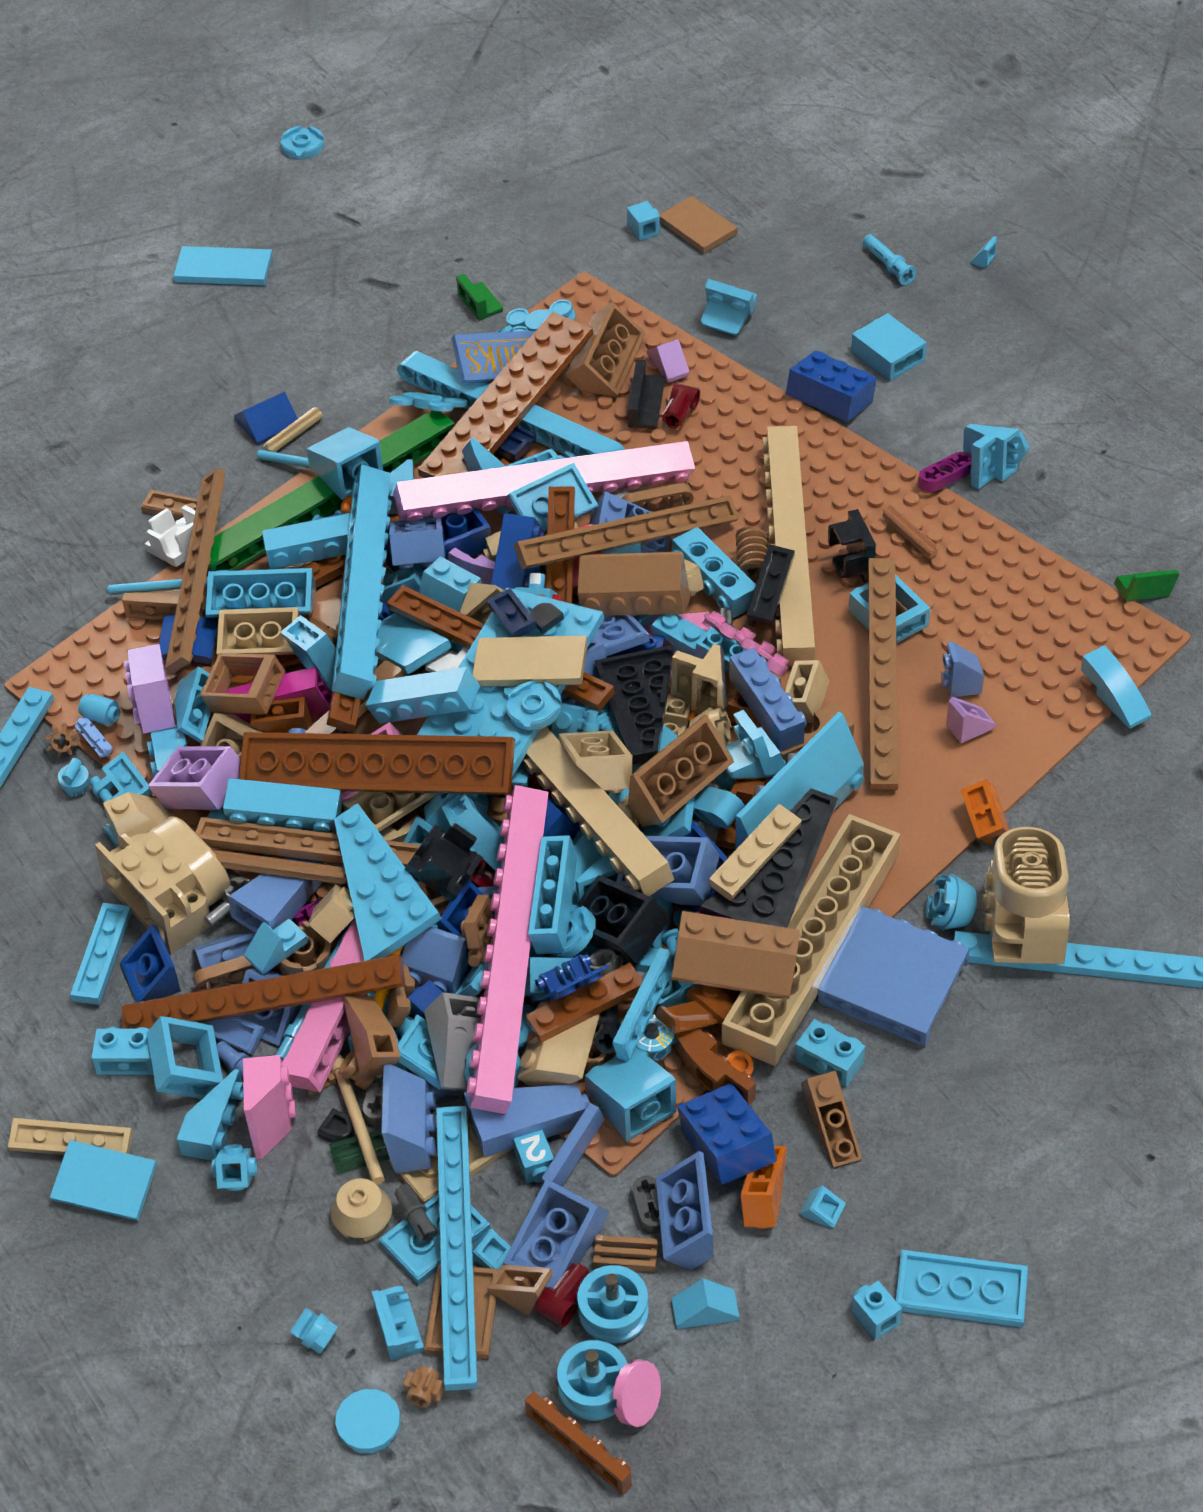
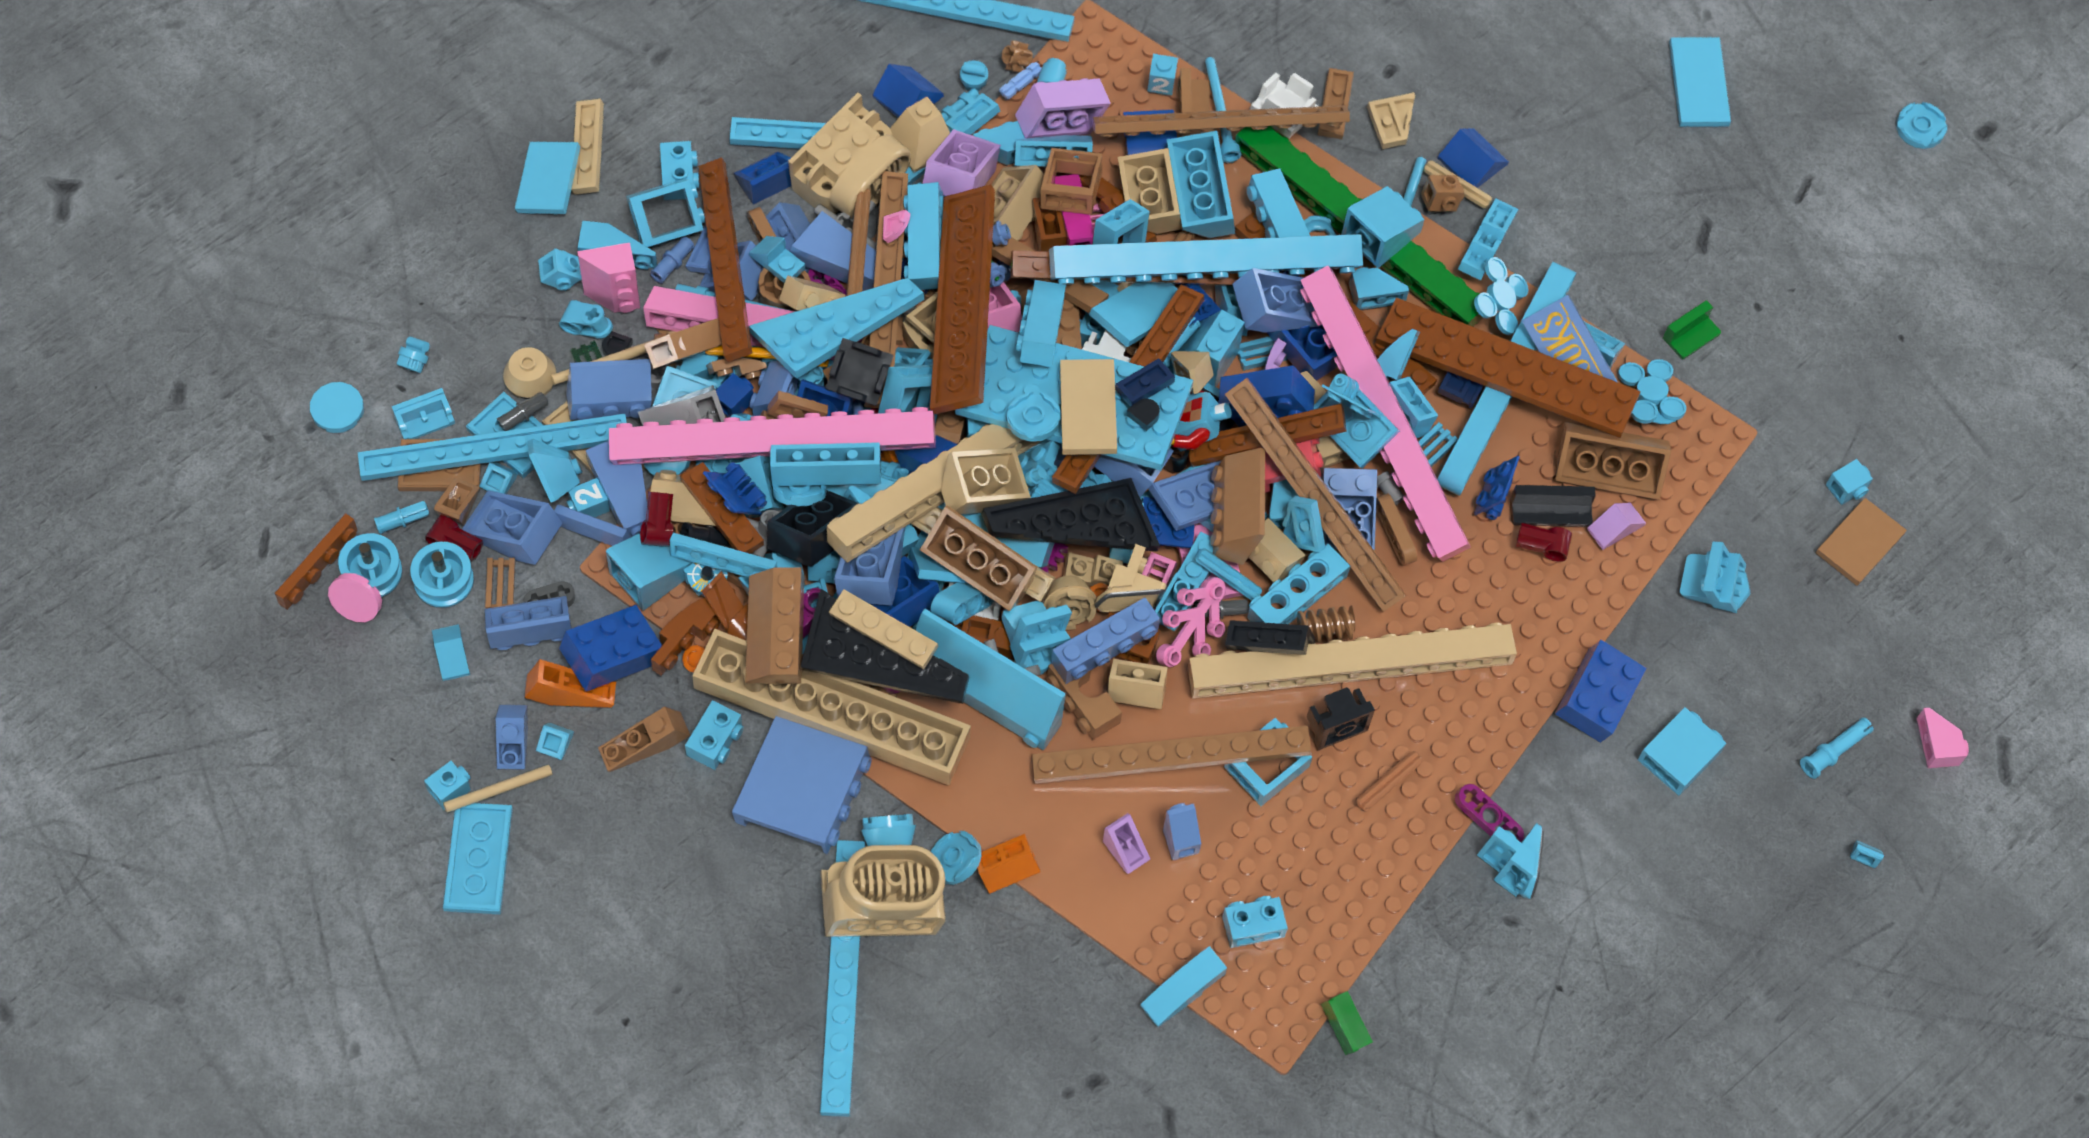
camera: 75 degrees right, 15 degrees up
(77, 838) = (902, 88): none -> blue slope
(121, 620) = (1162, 74): none -> medium azure brick
(202, 464) = (1392, 119): none -> tan wing
(267, 825) = (895, 225): none -> bright pink tile
(302, 1151) = (585, 320): none -> medium azure piece
(304, 433) = (1442, 193): none -> medium nougat brick
(355, 412) = (1487, 238): none -> medium azure slope
(423, 1386) = (362, 439): medium nougat gear -> none
(500, 1179) = (555, 468): none -> medium azure slope
(529, 1351) = (401, 517): none -> medium azure axle
(536, 481) = (1344, 391): none -> medium azure hinge
(598, 1061) = (657, 527): none -> dark red piece
(626, 421) = (1496, 488): none -> blue hinge
(653, 540) = (1304, 524): none -> medium azure wing
(697, 611) = (1227, 574): none -> medium azure axle
(818, 1242) = (511, 736): none -> medium blue slope
(882, 1261) = (497, 788): none -> tan bar
(886, 199) = (1941, 740): none -> bright pink slope
(972, 852) = (958, 855): none -> medium azure tile
(1050, 632) = (1254, 921): none -> medium azure brick

